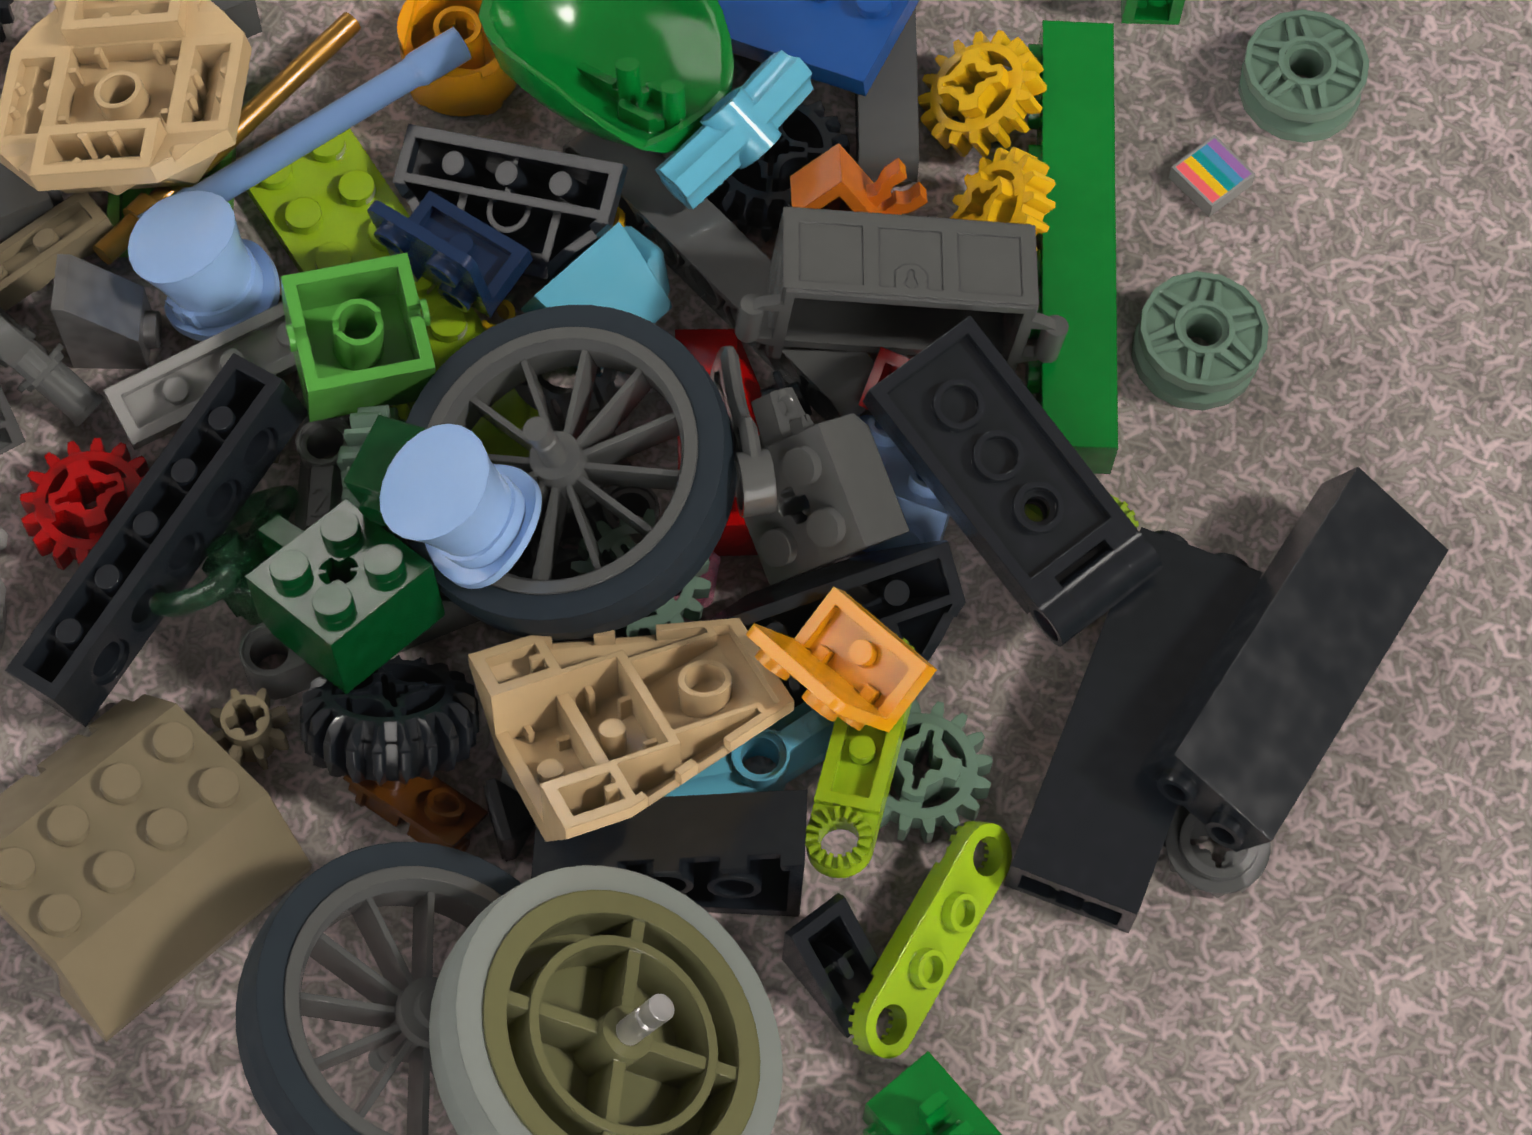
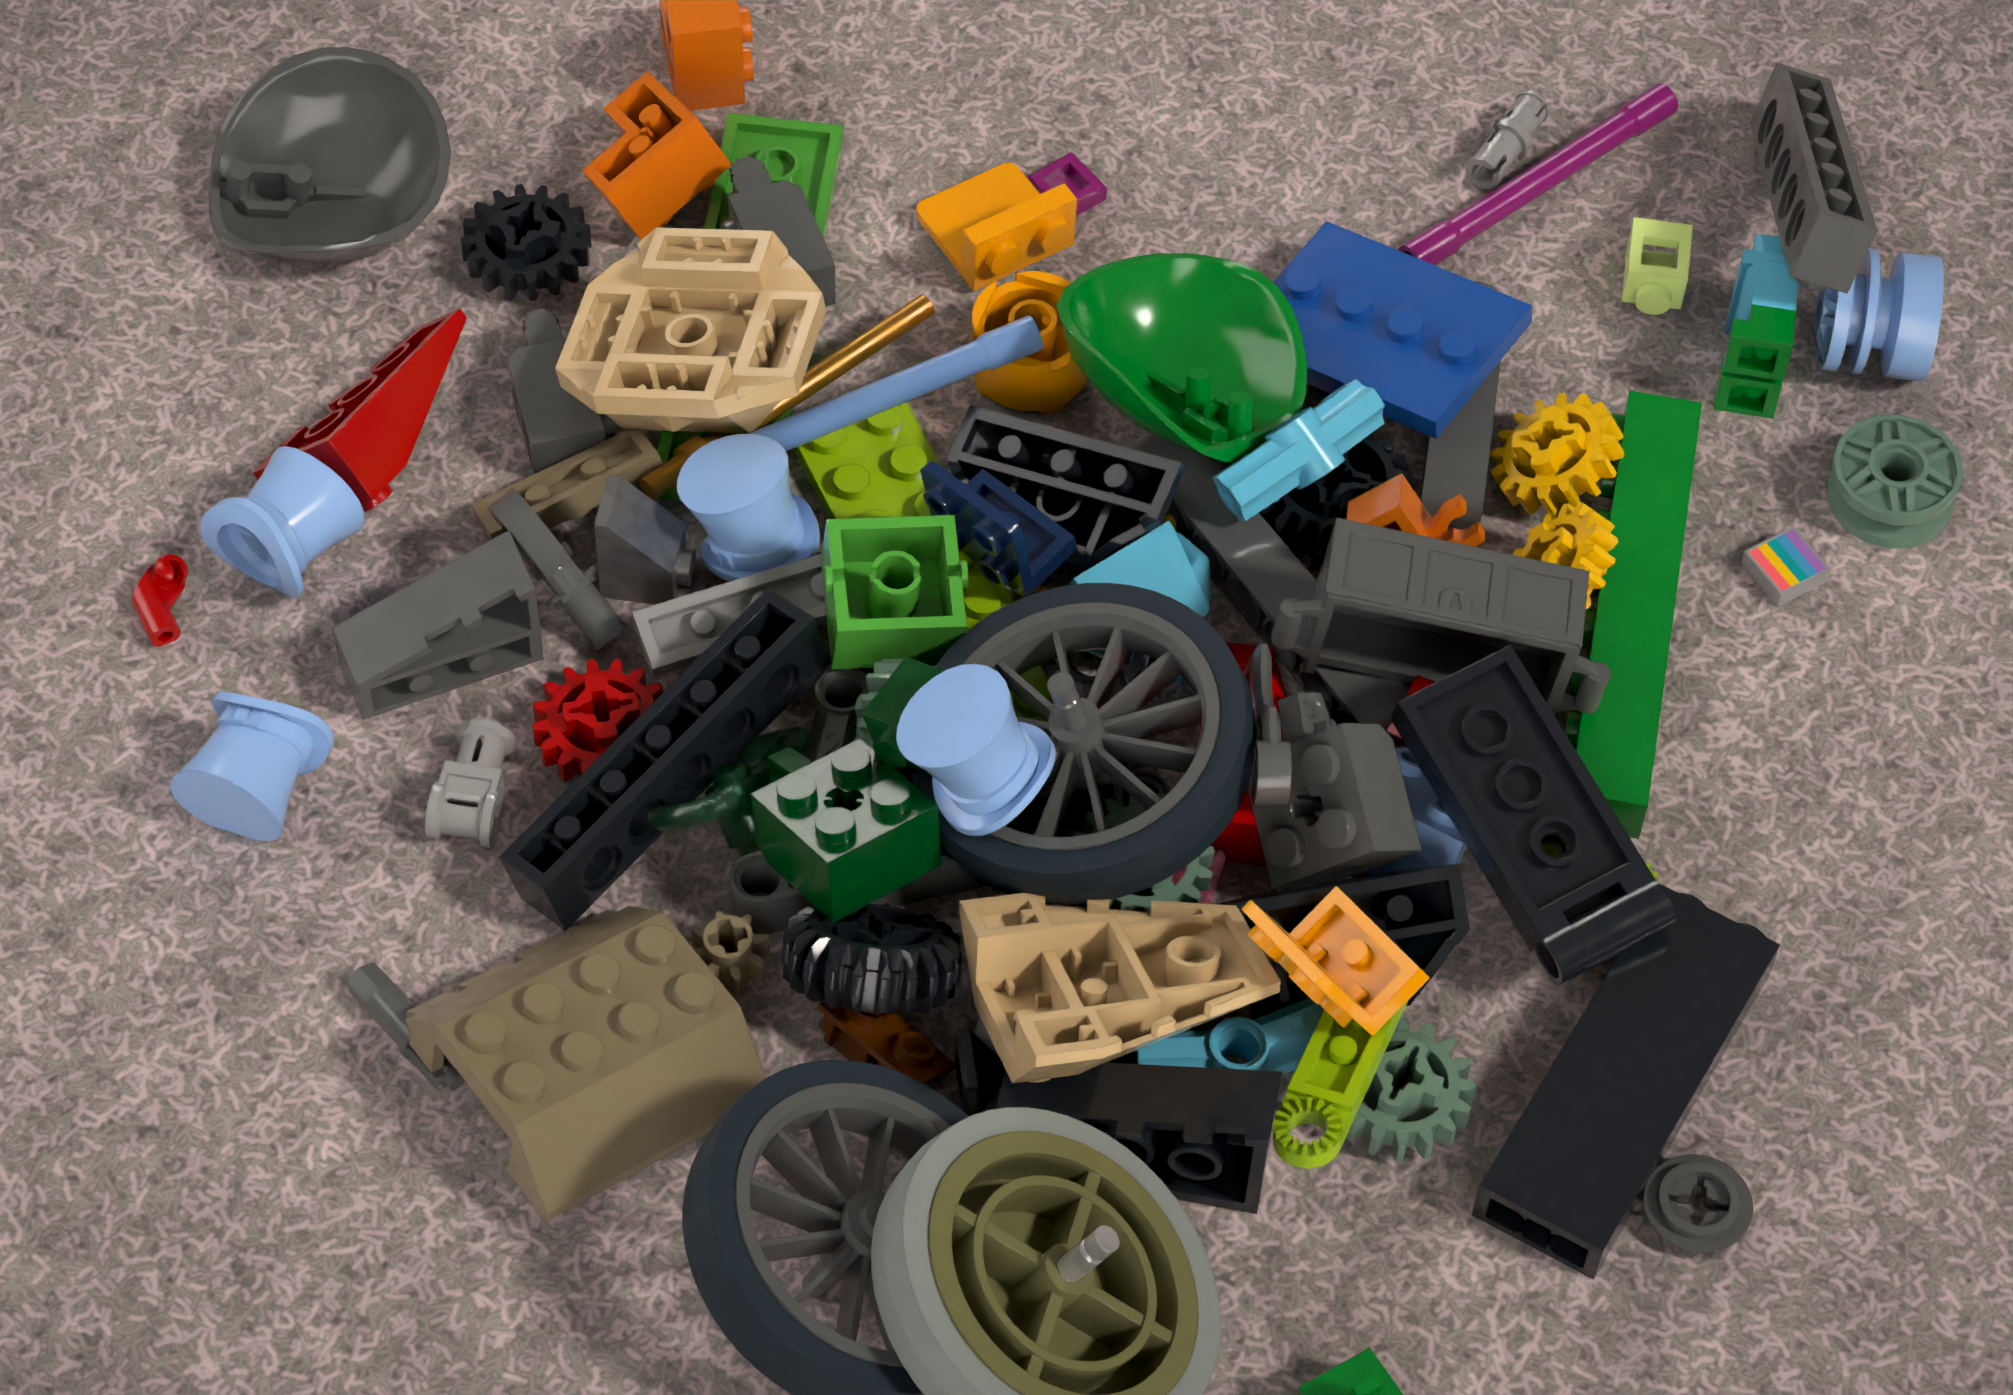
camera: 10 degrees right, 10 degrees down
(831, 959) = (1289, 1257): black slope -> none
(930, 939) = (1388, 1249): lime plate -> none
(1203, 308) = (1755, 689): sand green wheel -> none
(1294, 661) = (1801, 1031): black brick -> none

